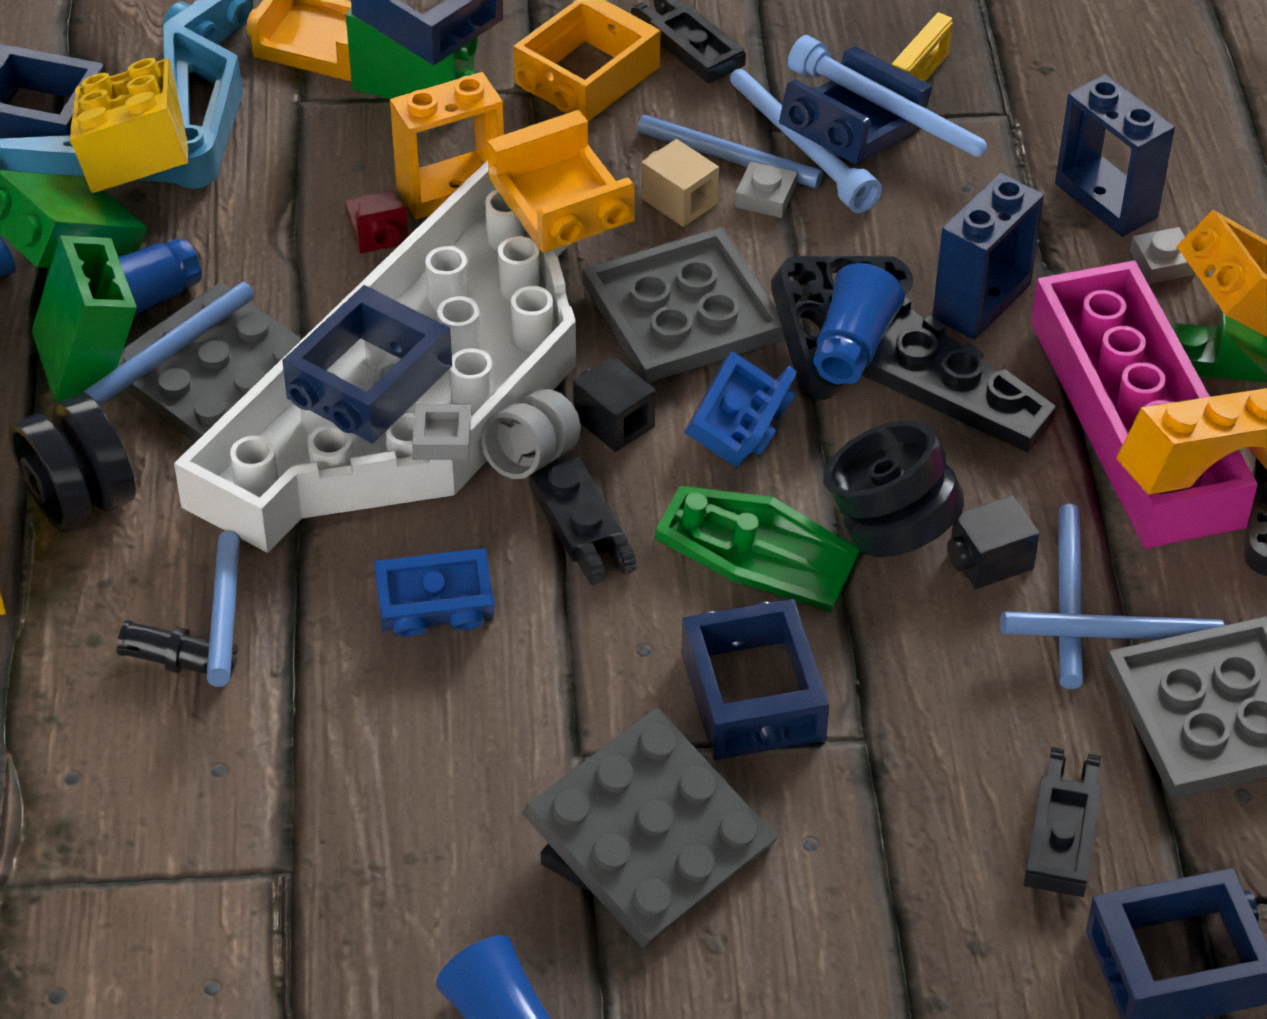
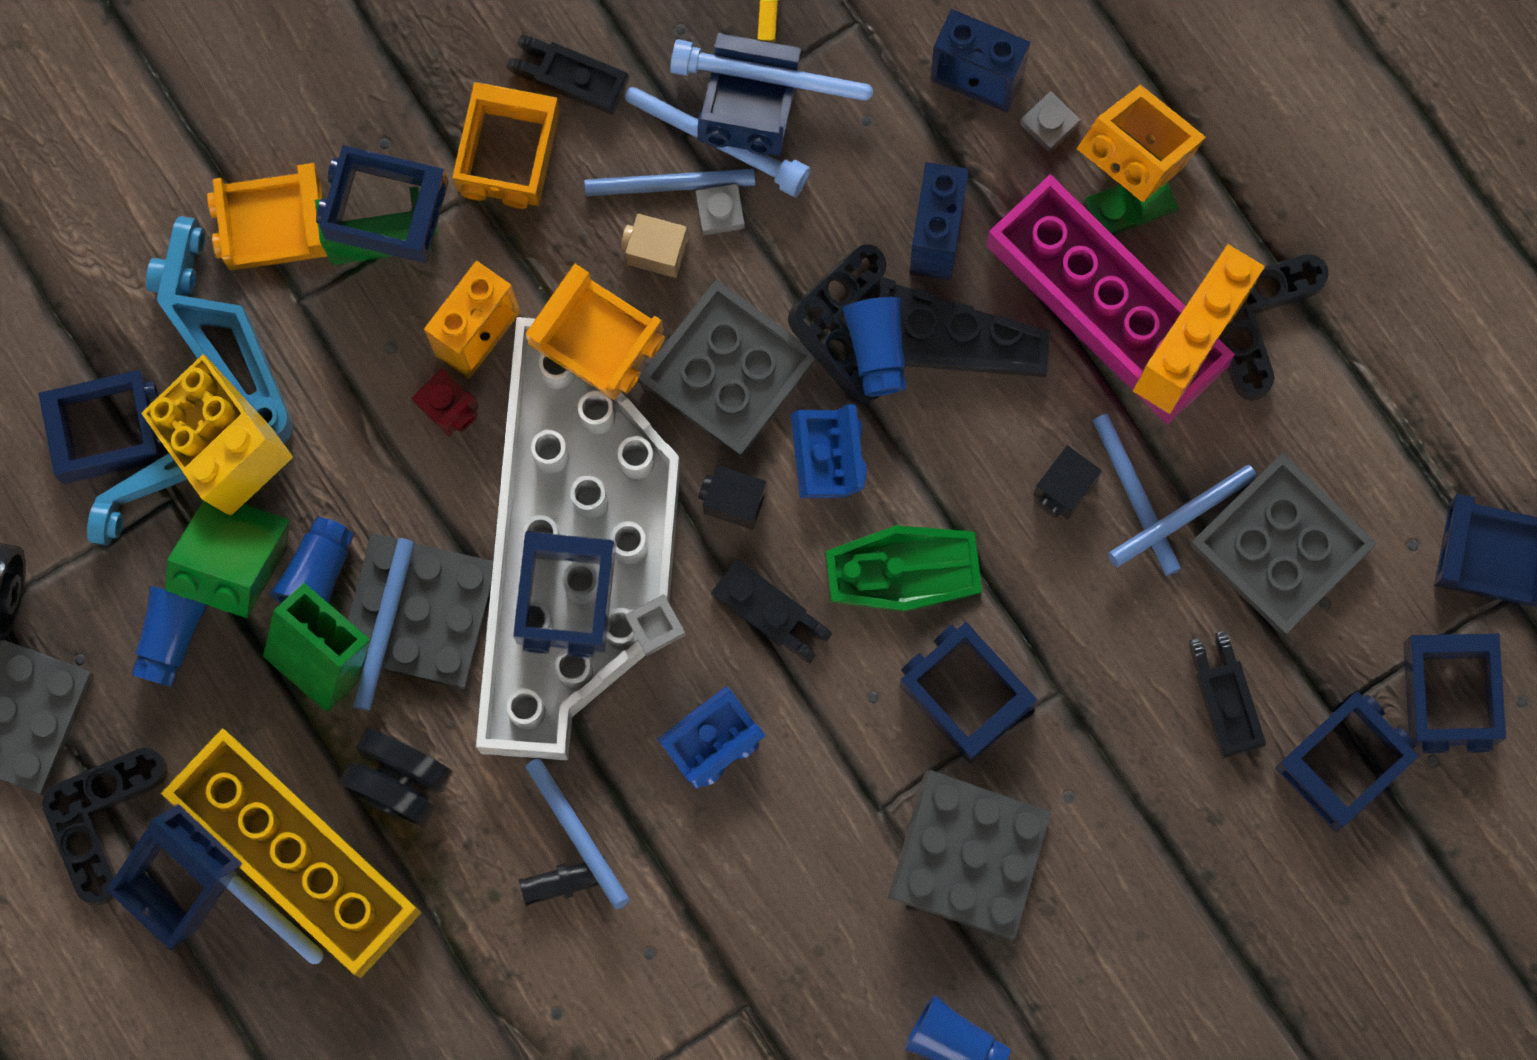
camera: 25 degrees left, 30 degrees up
(530, 433) = (699, 567): light grey wheel -> none
(894, 488) = (985, 487): black wheel -> none

